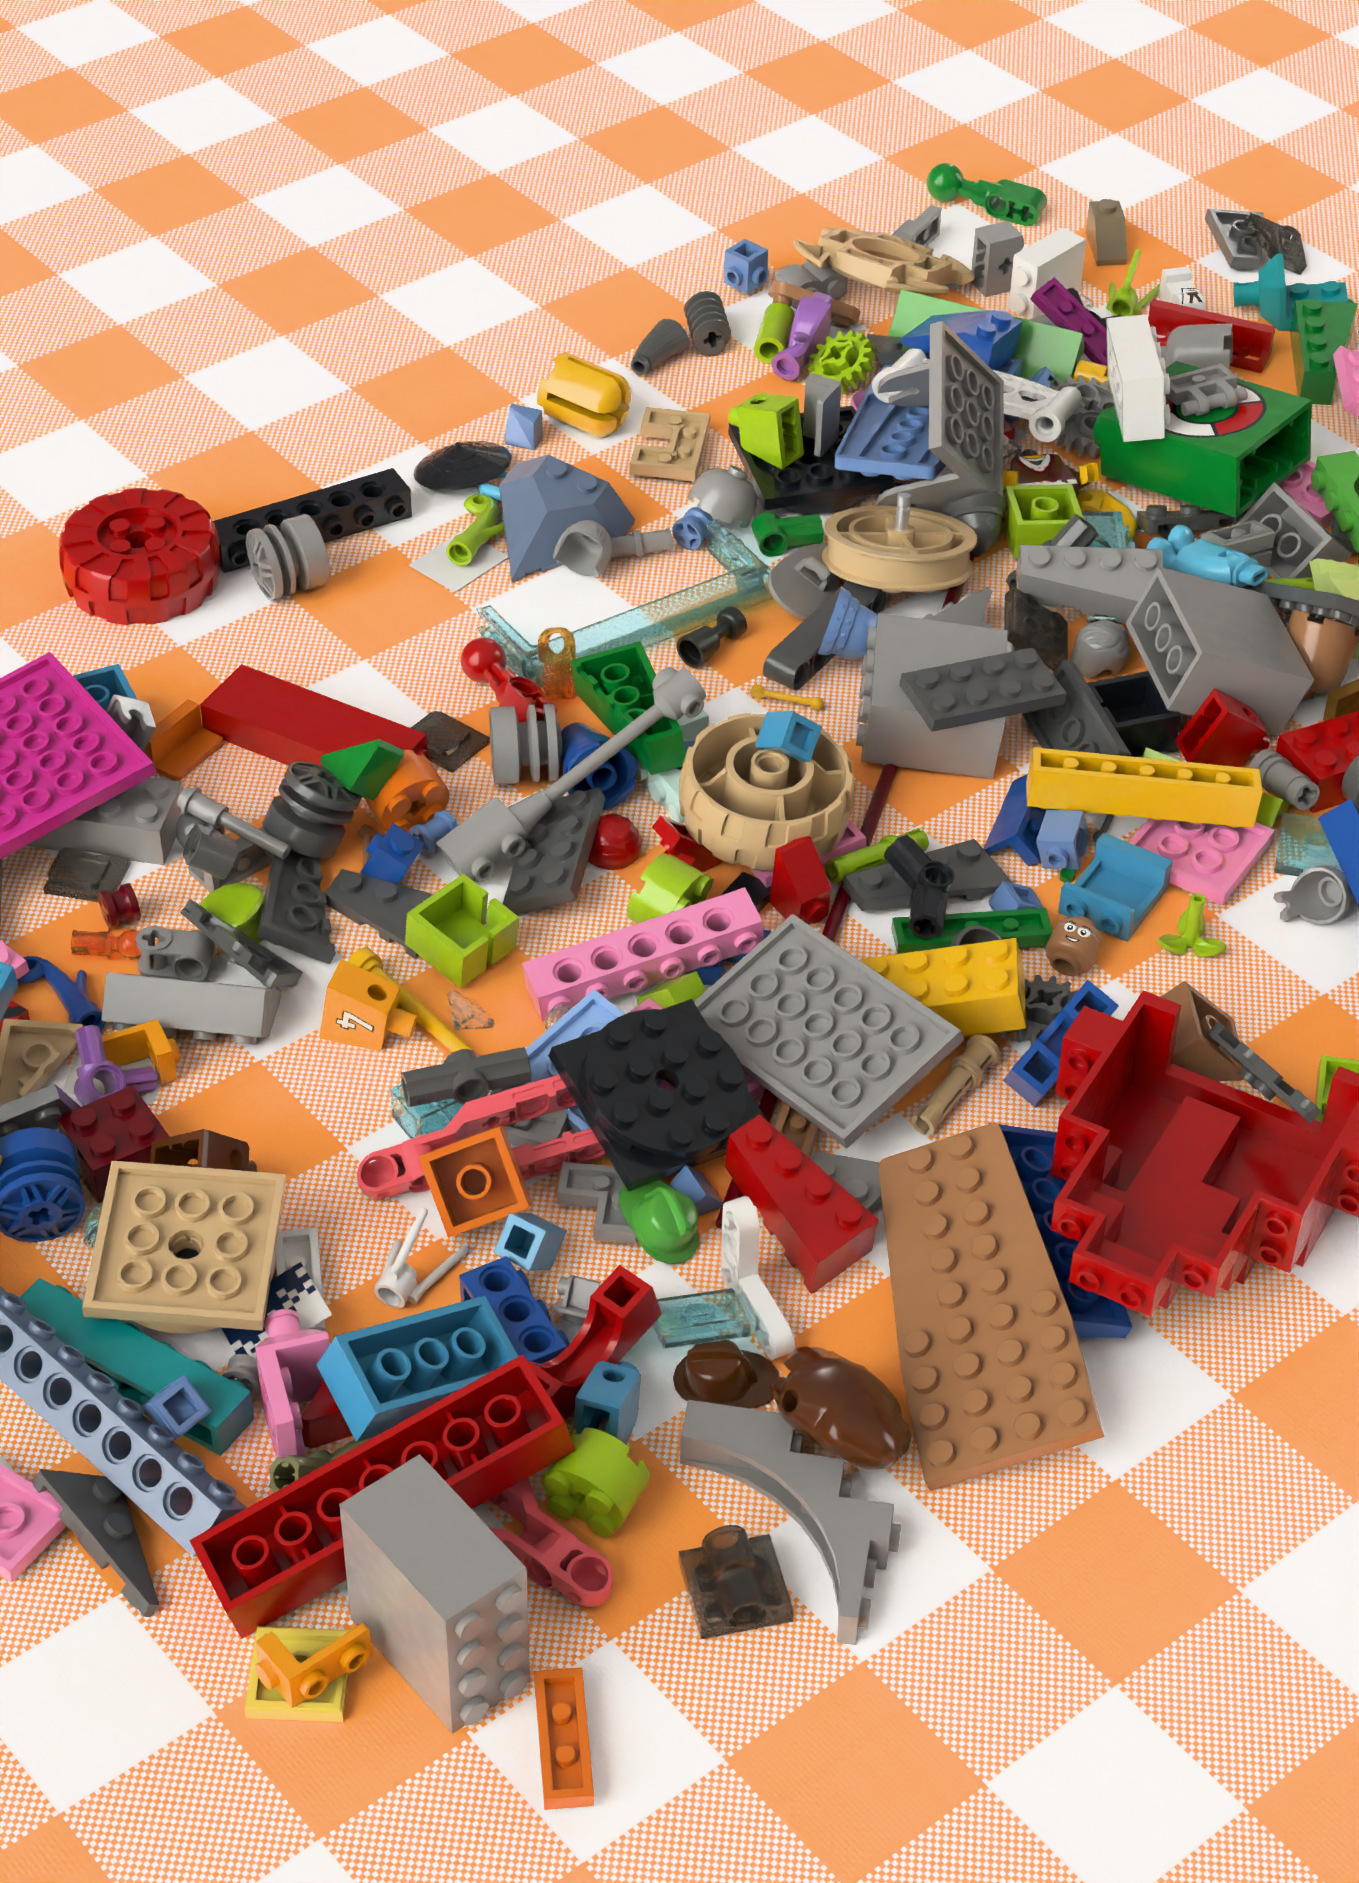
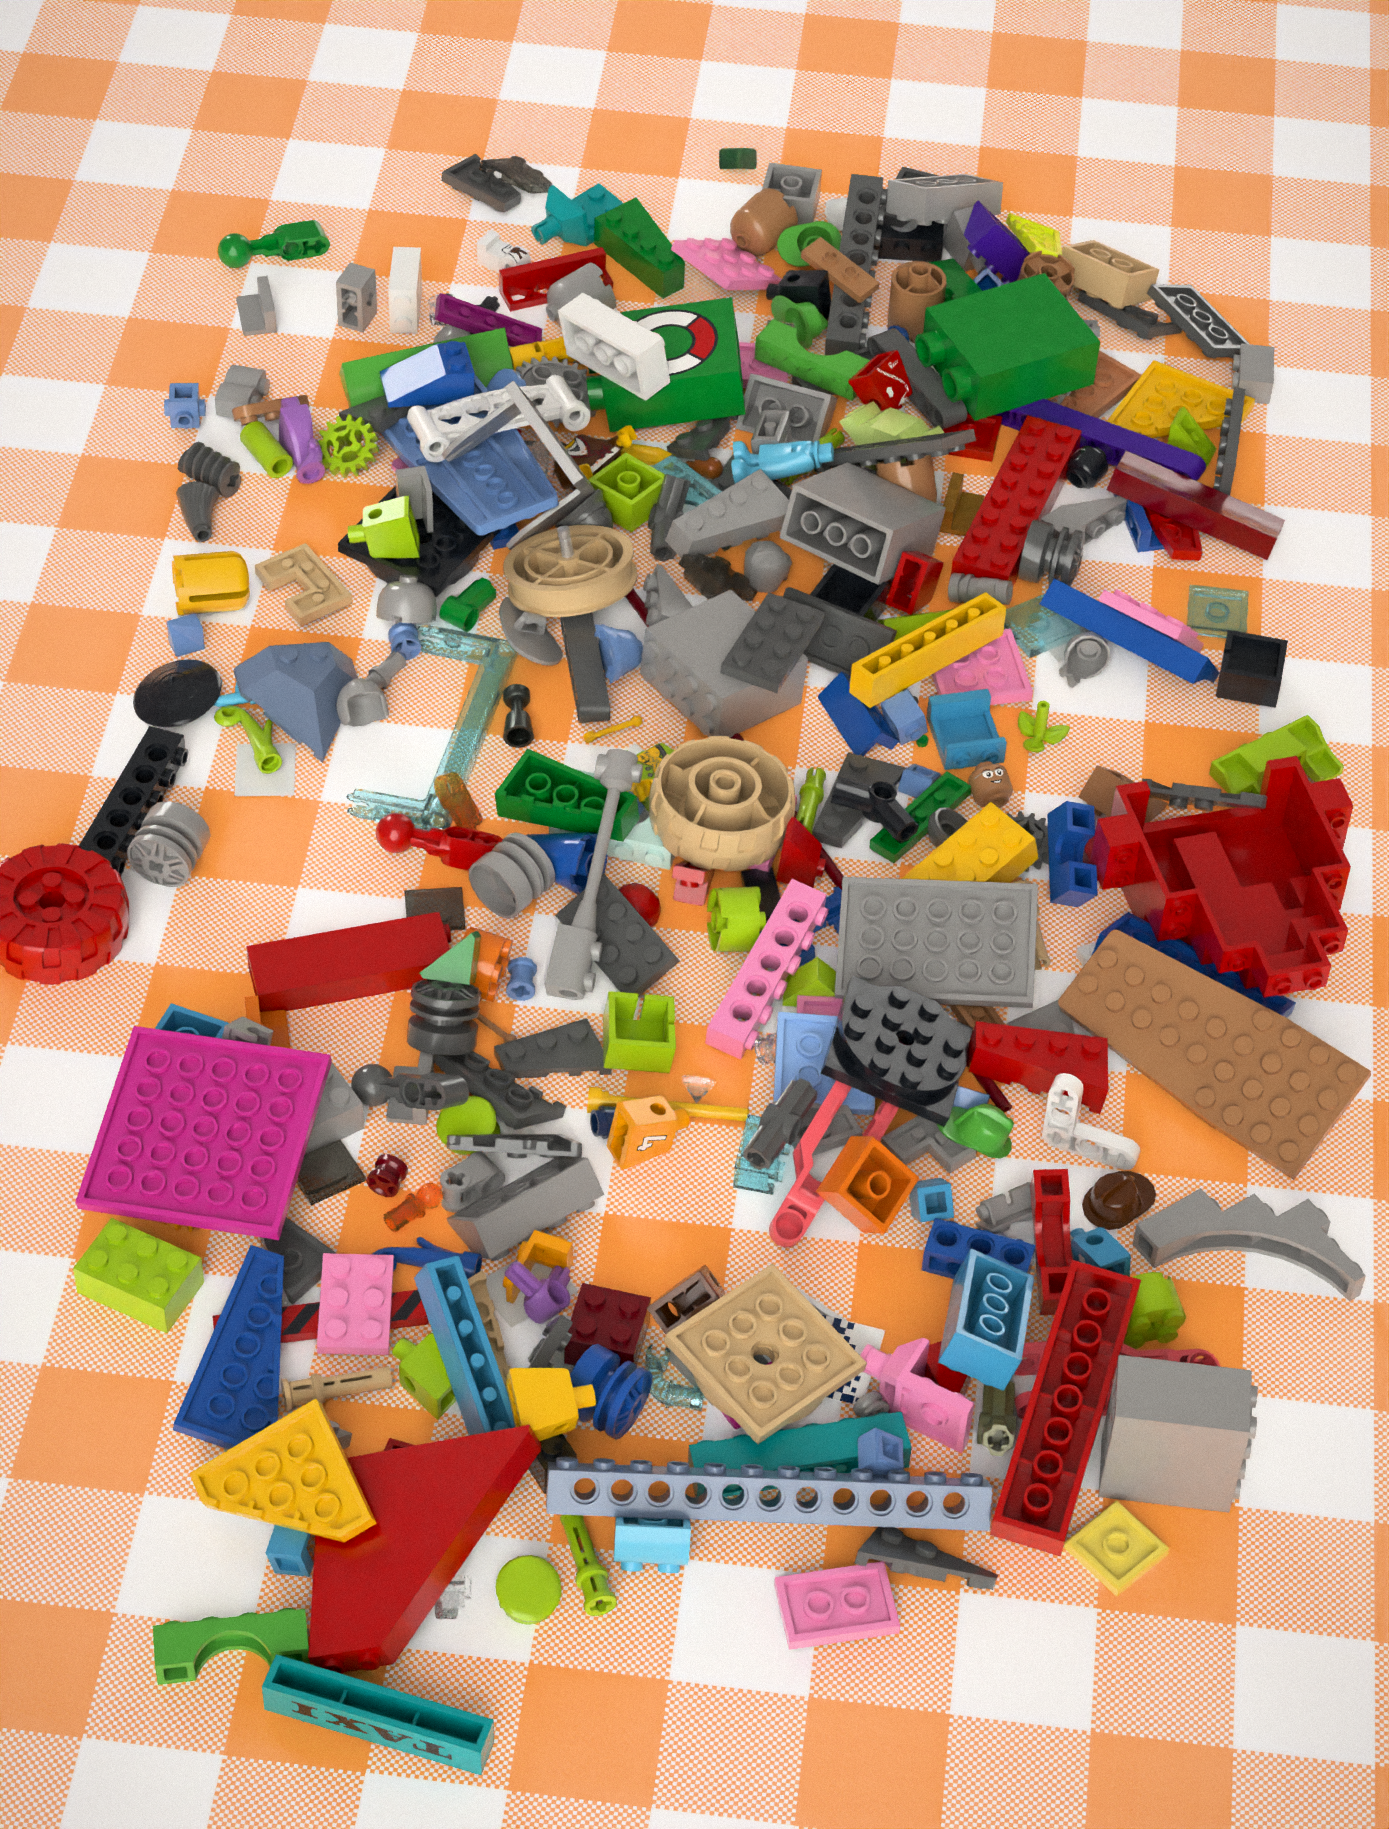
camera: 45 degrees left, 5 degrees up
(195, 803) = (392, 1063): light grey pin -> none
(310, 1678) = (1130, 1549): light orange bracket -> none
(391, 854) = (526, 1013): blue brick -> none
(399, 1279) = (881, 1283): white plant -> none
(563, 1738) = (1297, 1466): orange plate -> none
(701, 1318) = (1086, 1168): clear light blue tile -> none
(735, 1583) = (1273, 1310): clear smoke plate -> none
(789, 734) = (720, 754): dark azure panel -> none
(842, 1408) = (1220, 1166): reddish brown piece -> none
(884, 261) = (250, 359): tan piece -> none
(1107, 232) = (392, 227): dark tan slope -> none
(1125, 299) = (468, 280): lime plant -> none
(1205, 390) = (662, 317): light grey plate -> none

